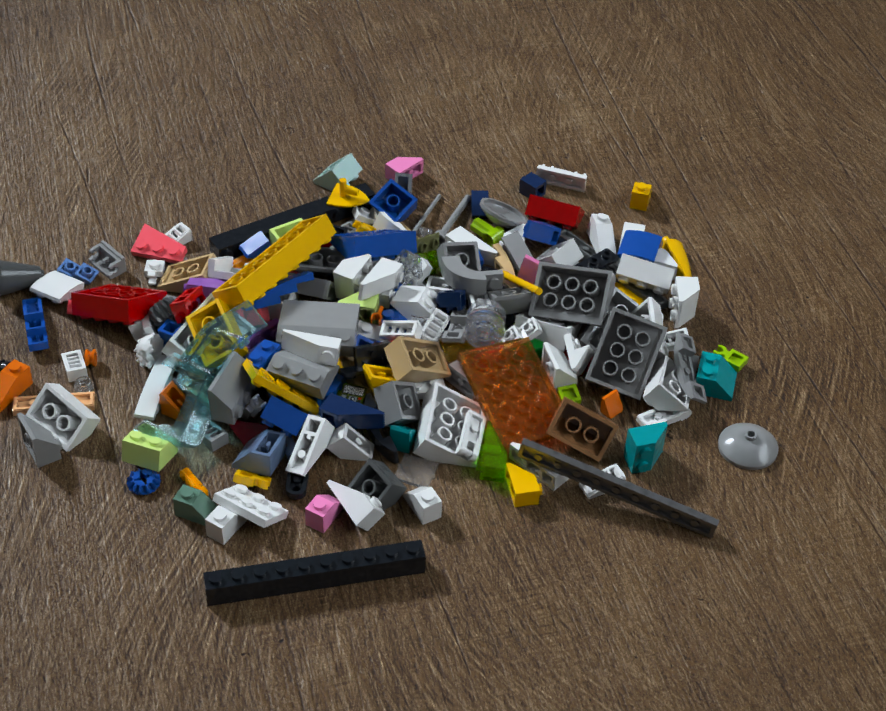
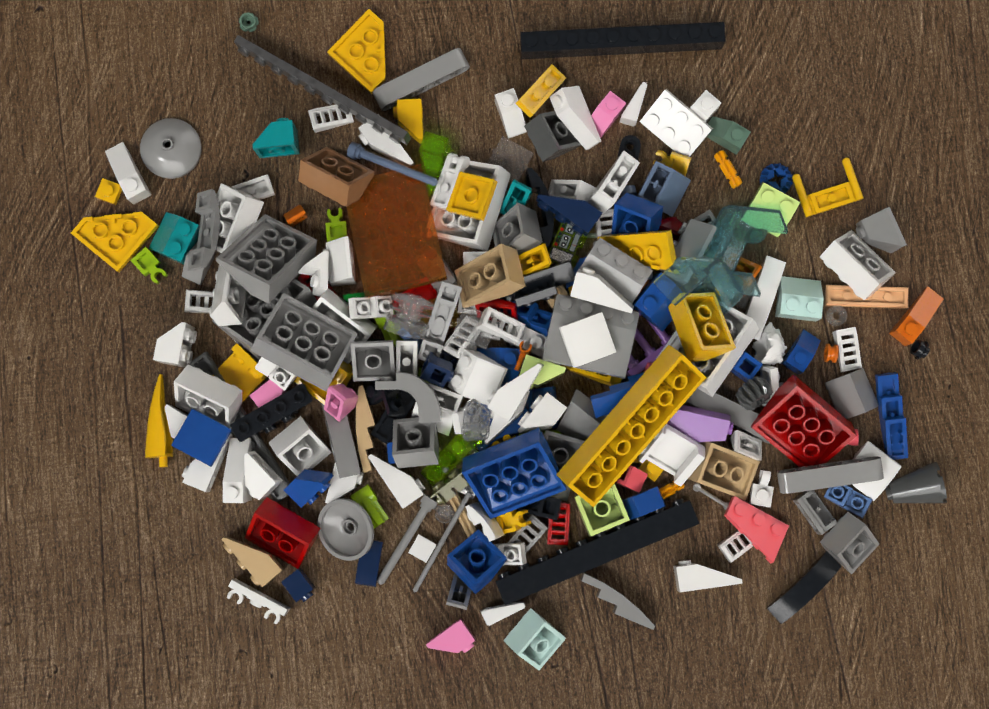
camera: 170 degrees left, 40 degrees up
(69, 334) = (852, 394): none -> light grey slope
(79, 244) = (849, 542): none -> light grey slope
(86, 470) = (831, 197): none -> yellow plate
(103, 276) = (830, 475): none -> light grey beam
(113, 217) = (805, 588): none -> black slope
(118, 354) = (801, 352): none -> blue slope
(119, 389) = (799, 299): none -> light aqua slope
(172, 285) = (746, 445): none -> white slope
(186, 303) = (732, 391): red hinge -> none
(204, 215) = (696, 577): none -> white slope
(270, 197) = (623, 606): none -> light grey slope
(295, 519) = (632, 111): none -> white slope
(320, 309) = (587, 339): none -> white slope
(346, 196) = (530, 579): yellow shield -> none
(374, 179) = (496, 613): none -> white slope
(394, 515) = (540, 90): none -> yellow plate
(438, 216) = (422, 548): none -> white tile
(447, 415) = (471, 196): none -> yellow plate
(519, 438) = (356, 152): none -> sand blue piece
(519, 519) = (421, 79): none -> light grey beam
(522, 283) = (356, 374): yellow bar -> none
(569, 193) = (259, 563): none -> tan slope
(584, 234) = (259, 476): none -> white slope
(586, 537) = (363, 51): none -> yellow plate
(640, 196) = (167, 555): yellow slope -> none
(712, 550) = (248, 17): none -> sand green plate
(770, 374) = (115, 236): none -> yellow plate
(777, 415) = (127, 173): none -> white slope
(790, 407) = (108, 191): none -> yellow plate

